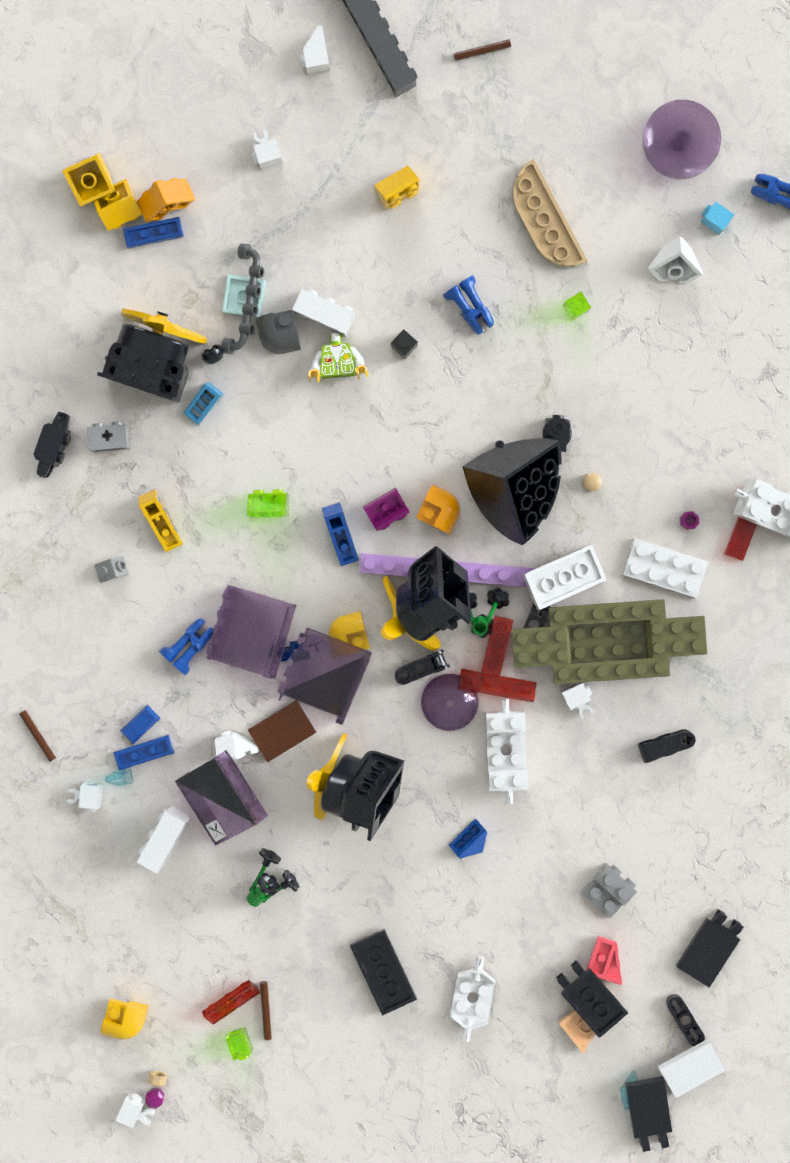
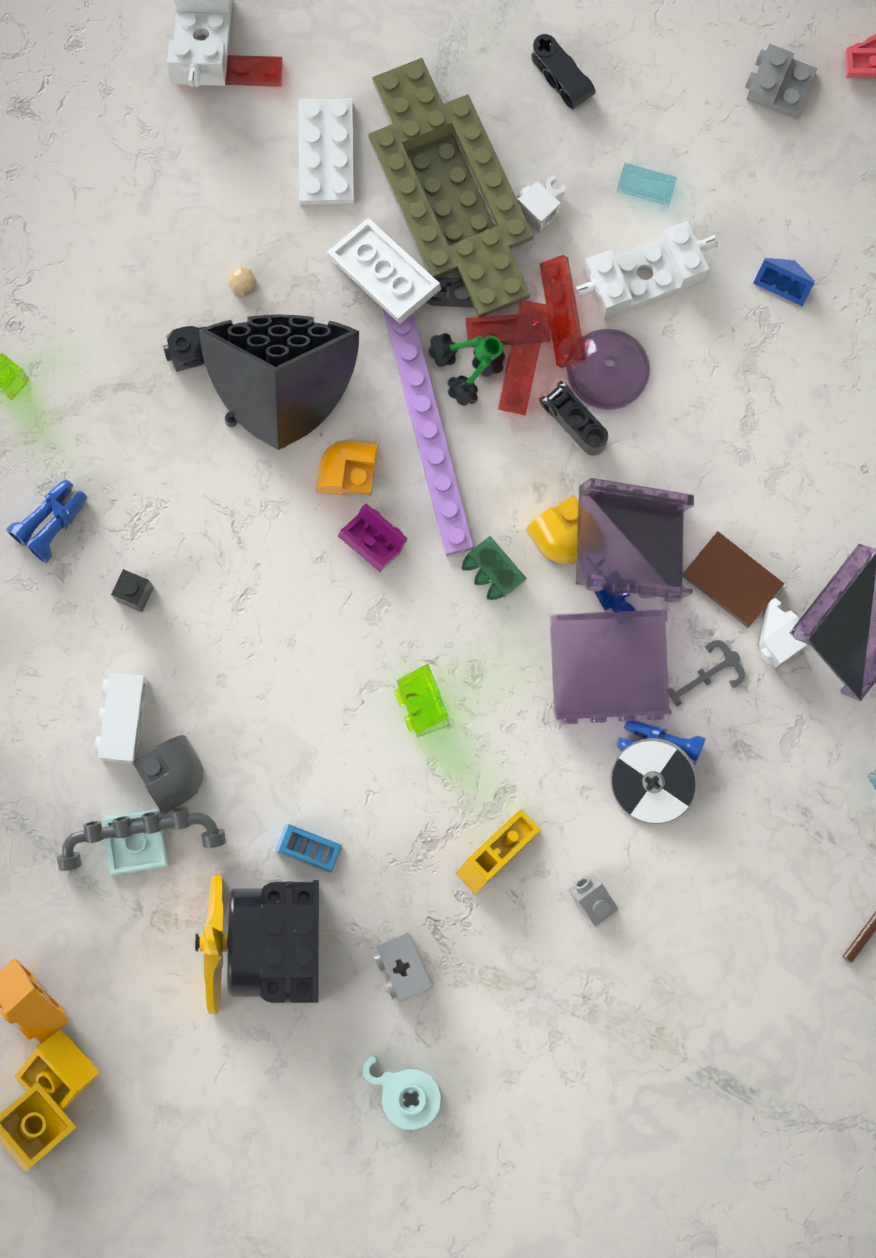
camera: 110 degrees left, 10 degrees down
(39, 408) = (395, 1086): none -> light aqua piece
(52, 444) = (440, 1048): black hinge -> none
(140, 724) = (799, 782): blue tile -> none
(143, 752) = (837, 763): blue tile -> none
(153, 232) = (82, 1007): blue tile -> none
(182, 632) = (655, 803): none -> piece
(213, 355) = (233, 856): black plate -> none
(232, 711) = (731, 659): none -> dark grey piece
(337, 361) = (185, 674): torso -> none
(340, 534) = (427, 591): blue slope -> none
(340, 581) = (494, 568): none -> clear green plate
(357, 788) = (772, 435): black brick -> none
(428, 599) = (478, 428): black brick -> none
(475, 649) = (523, 357): none -> clear red plate
(568, 773) = (646, 184): none -> clear light blue tile
(689, 520) = (251, 140): magenta tile -> none

